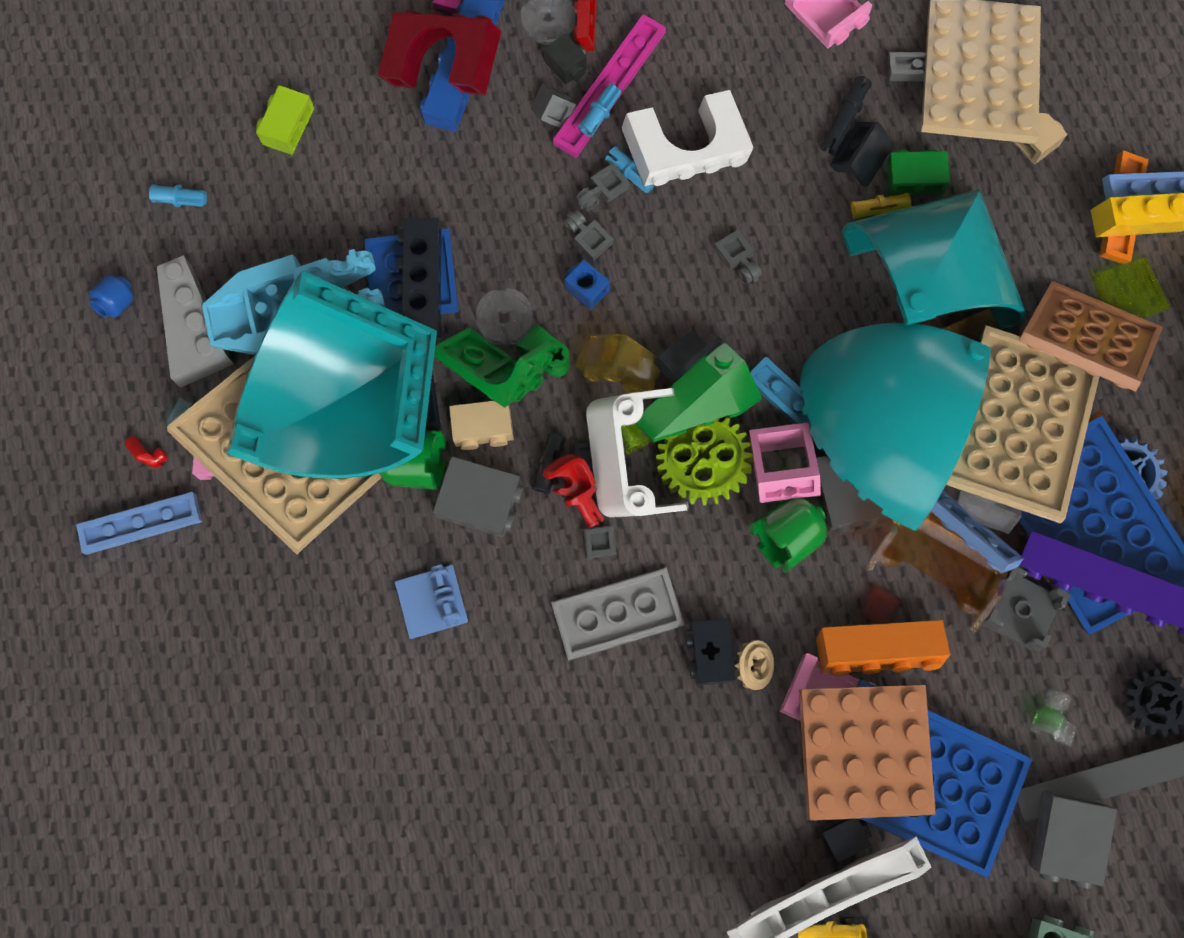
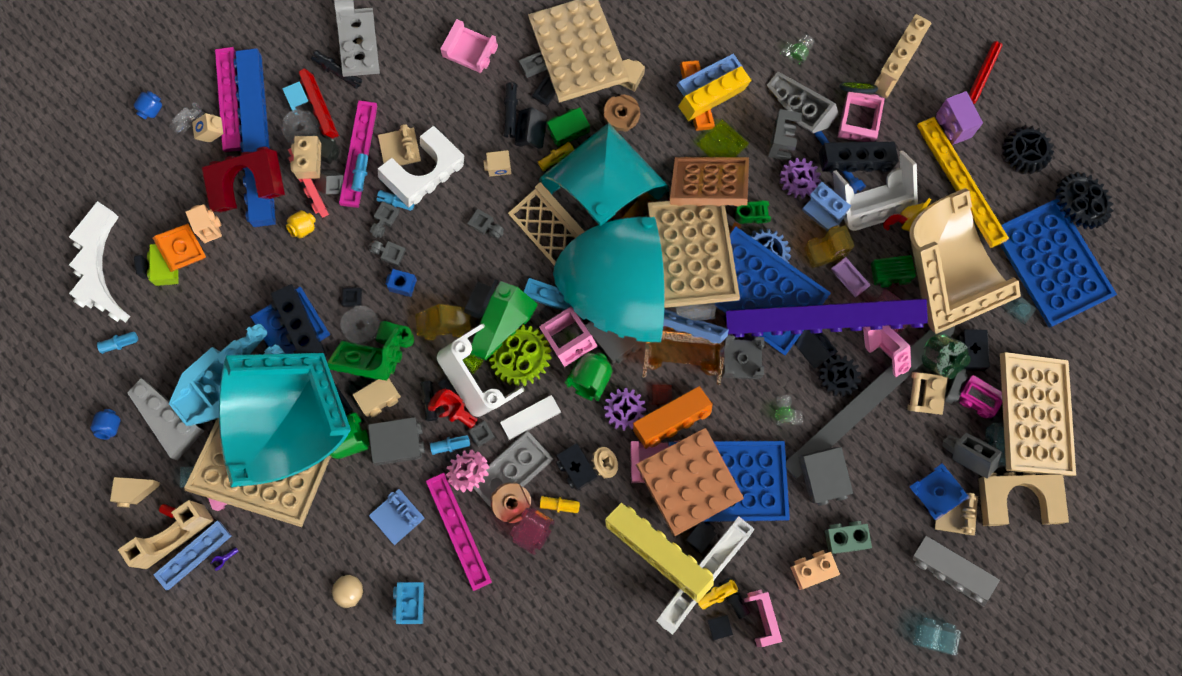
camera: 30 degrees left, 0 degrees up
(101, 399) = (131, 491): none -> tan slope
(155, 475) = (144, 553): none -> tan arch
(177, 547) = (224, 558): none -> dark purple hand
(207, 47) = (91, 239): none -> white arch
(254, 109) = (141, 266): none -> black tile
(314, 105) = (179, 247): none -> orange tile
(317, 671) = (347, 591): none -> tan hair
(362, 88) = (204, 223): none -> light nougat brick
(392, 729) = (409, 603): none -> dark azure bracket
(488, 145) = (300, 224): none -> yellow head
(506, 664) = (459, 532): none -> dark pink plate
(510, 274) = (351, 297): none -> black tile
(522, 83) = (311, 191): none -> coral plate
(537, 57) = (306, 157): none -> tan brick
(549, 536) = (450, 444): none -> dark azure axle
(557, 584) = (467, 471): none -> bright pink gear
(608, 711) = (532, 530): none -> clear pink brick
(609, 669) = (500, 498): none -> medium nougat plate
(663, 693) = (559, 504): none -> yellow axle
(672, 99) = (400, 146): none -> tan hinge
(679, 551) = (530, 417): none -> white tile
(777, 834) = (659, 552): none -> light yellow brick
(795, 180) = (497, 163): none -> tan brick
(805, 596) = (617, 409): none -> medium lavender gear
(849, 283) = (556, 209): none -> tan fence
(906, 110) = (545, 91): none -> black tile
(1014, 174) = (620, 103): none -> medium nougat plate
(1137, 408) = (756, 212): none -> green piece
(1139, 644) = (815, 347): none -> black panel

